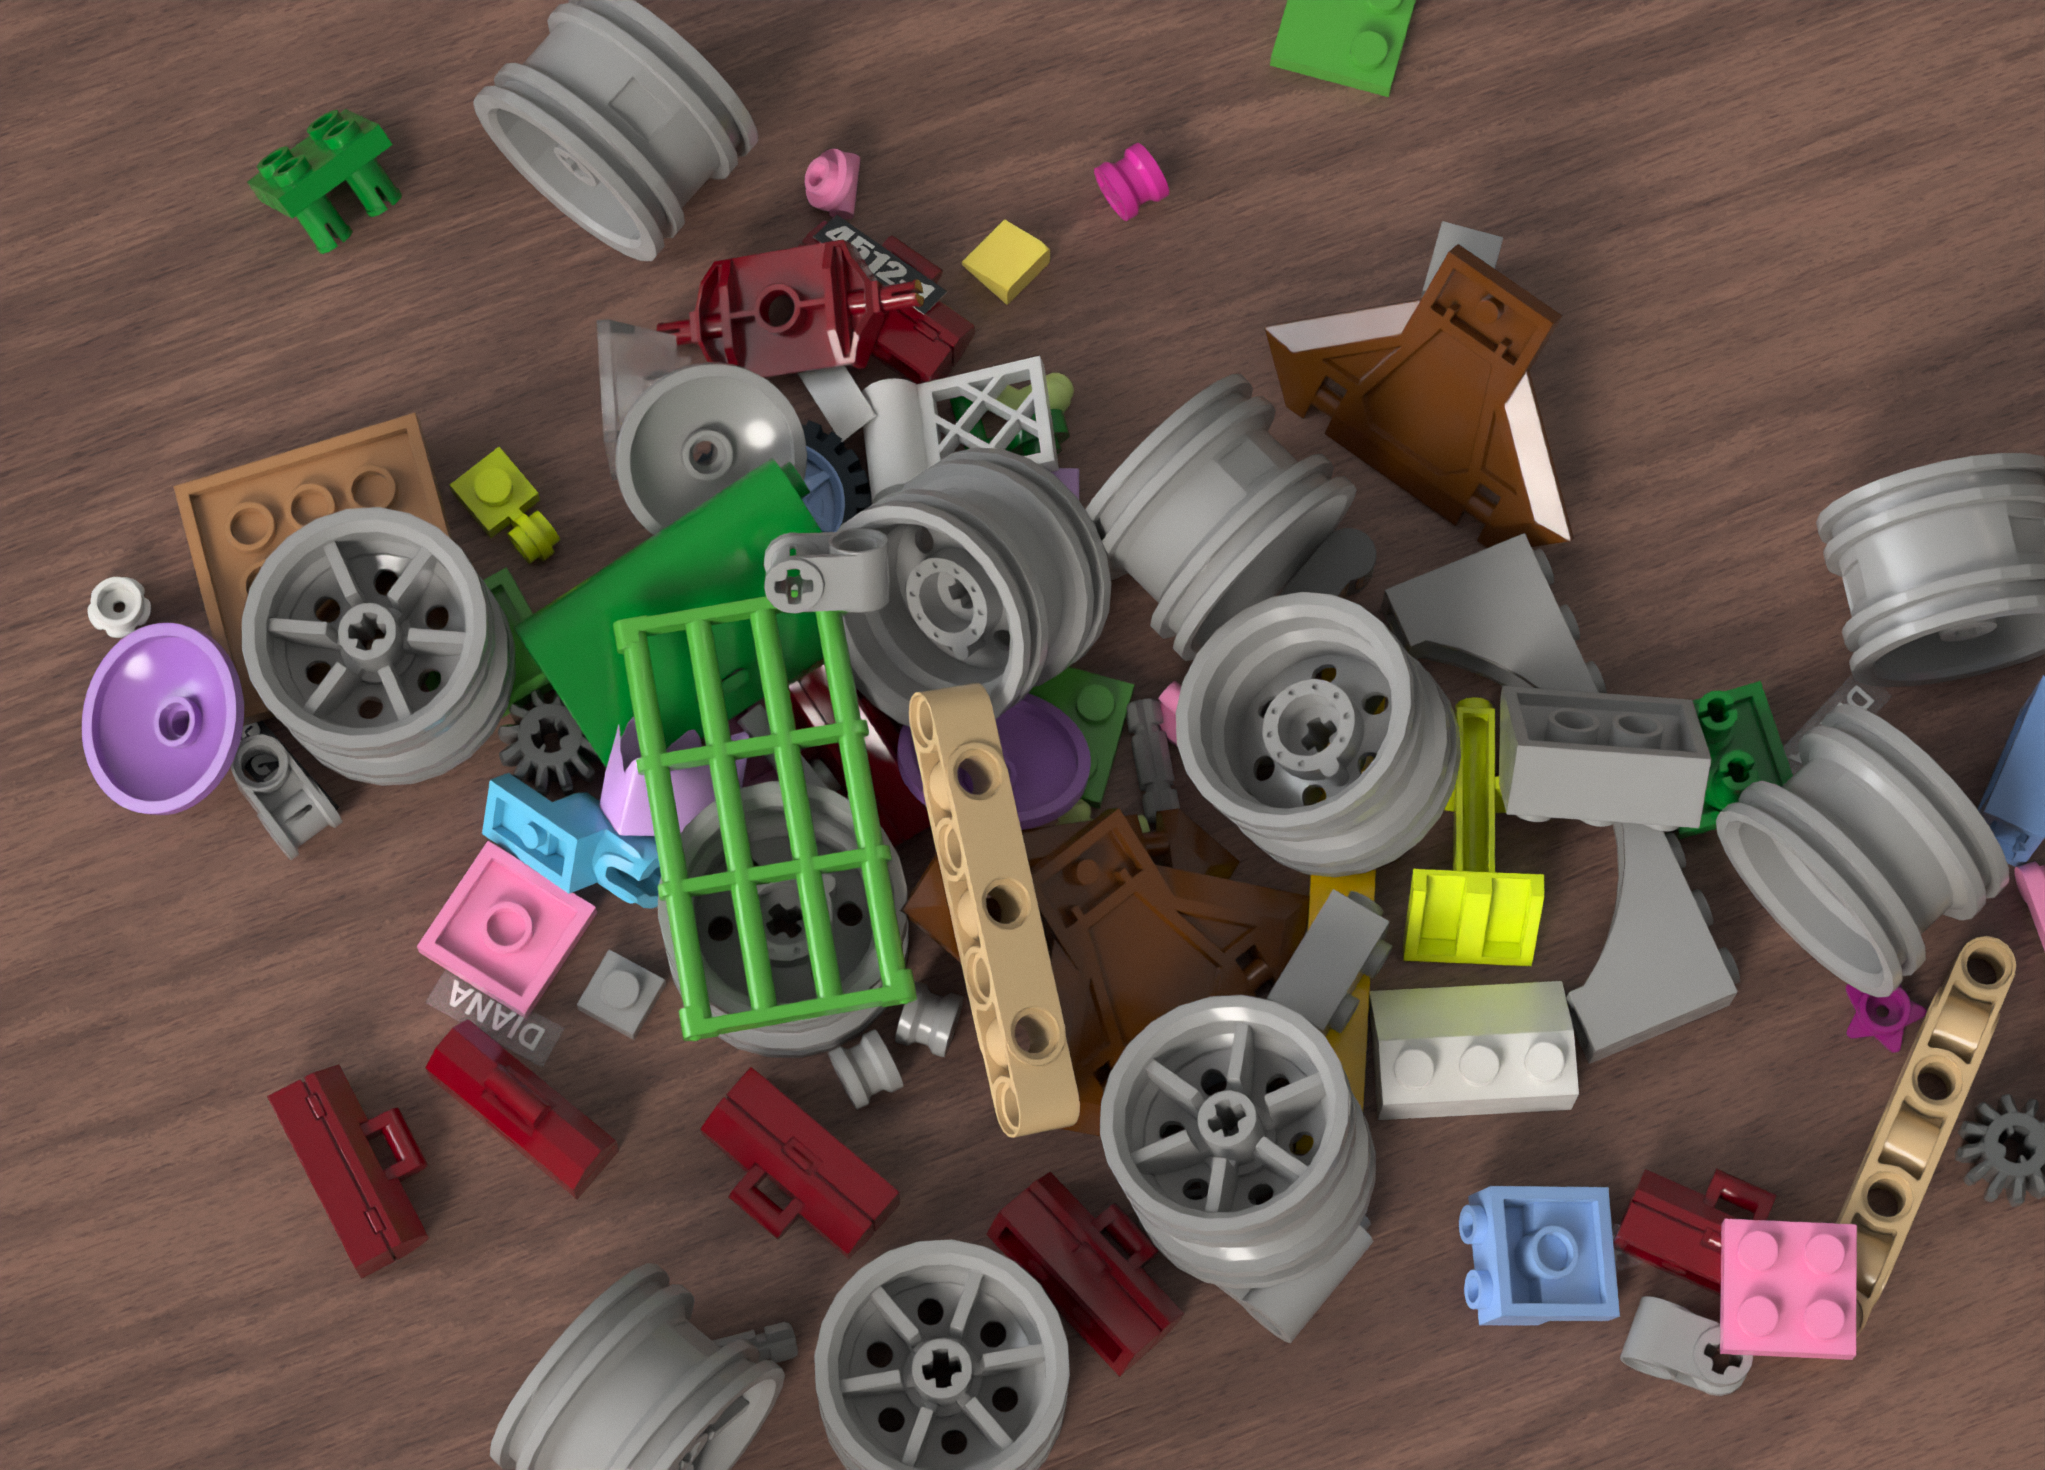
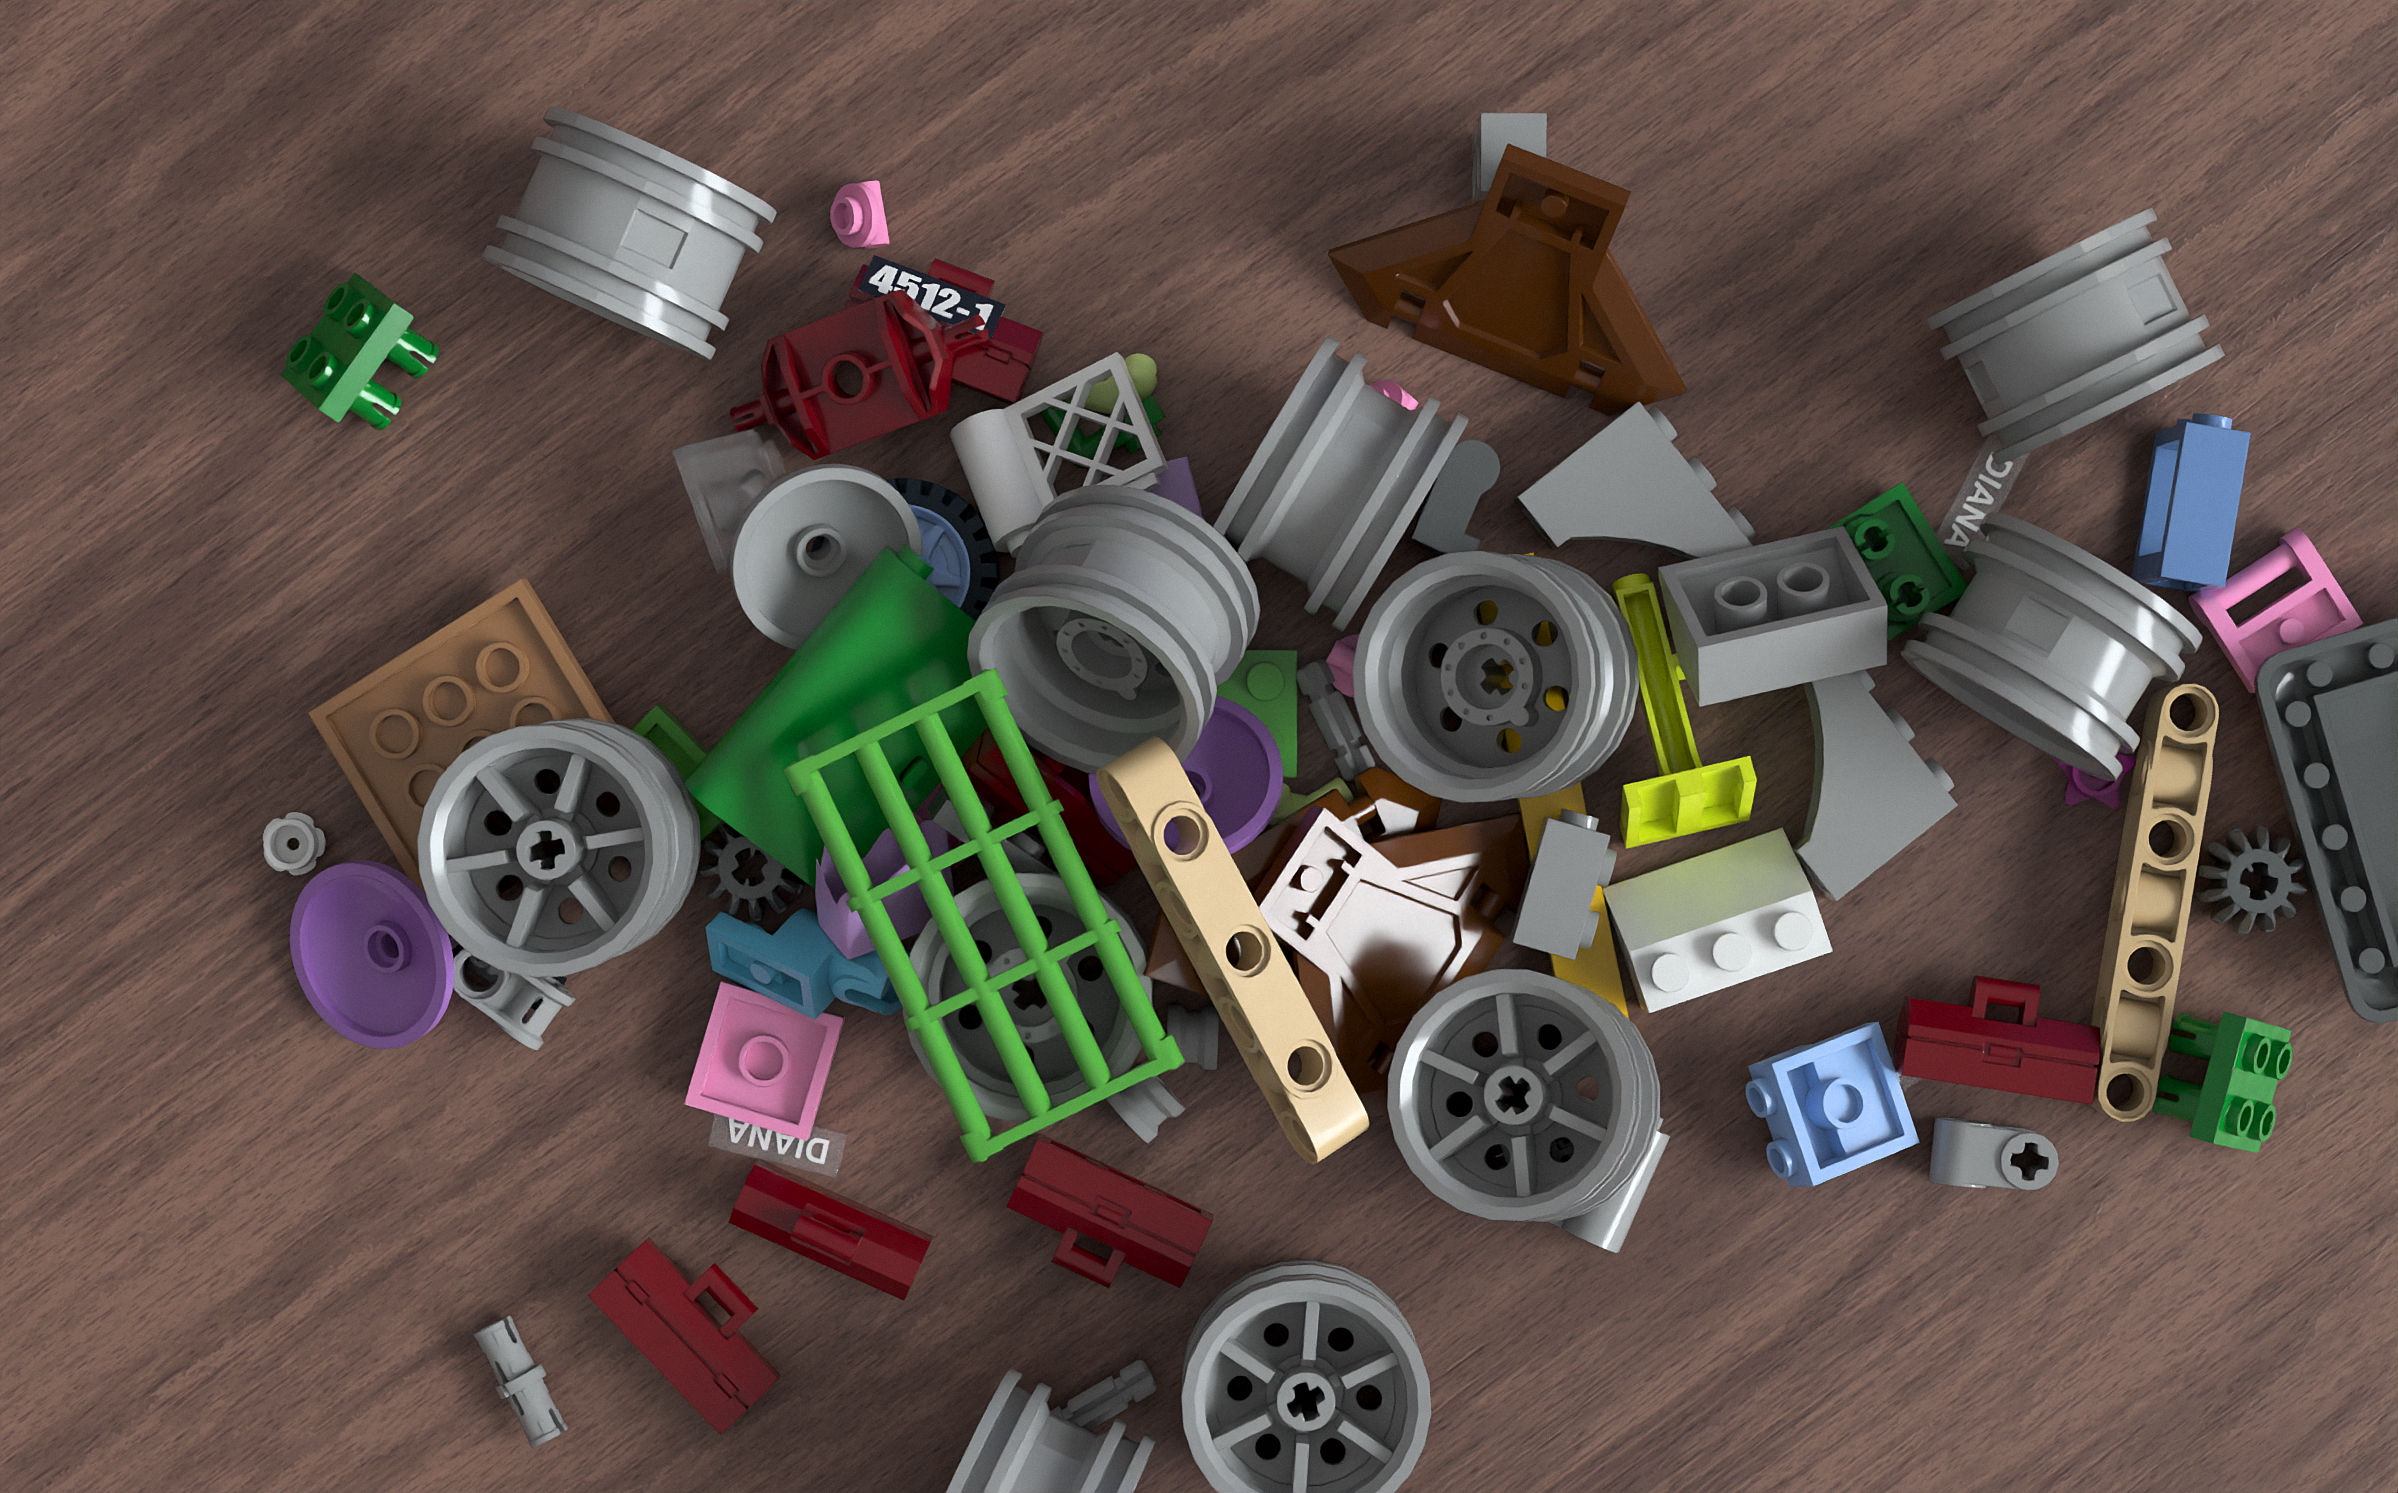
camera: 15 degrees left, 15 degrees up
(172, 1174) = (520, 1381): none -> light grey pin
(499, 495) = (626, 628): neon yellow plate -> none
(621, 994) = (891, 1090): light grey plate -> none
(836, 571) = (985, 668): light grey piece -> none
(838, 399) = (934, 450): white sticker -> none
(1007, 260) = (1053, 248): light yellow slope -> none
(1083, 1274) = (1406, 1243): dark red piece -> none
(1131, 181) = (1155, 135): dark pink wheel -> none
(1788, 1289) = (2077, 1085): bright pink plate -> none
(1950, 1336) = (2239, 1083): none -> green plate

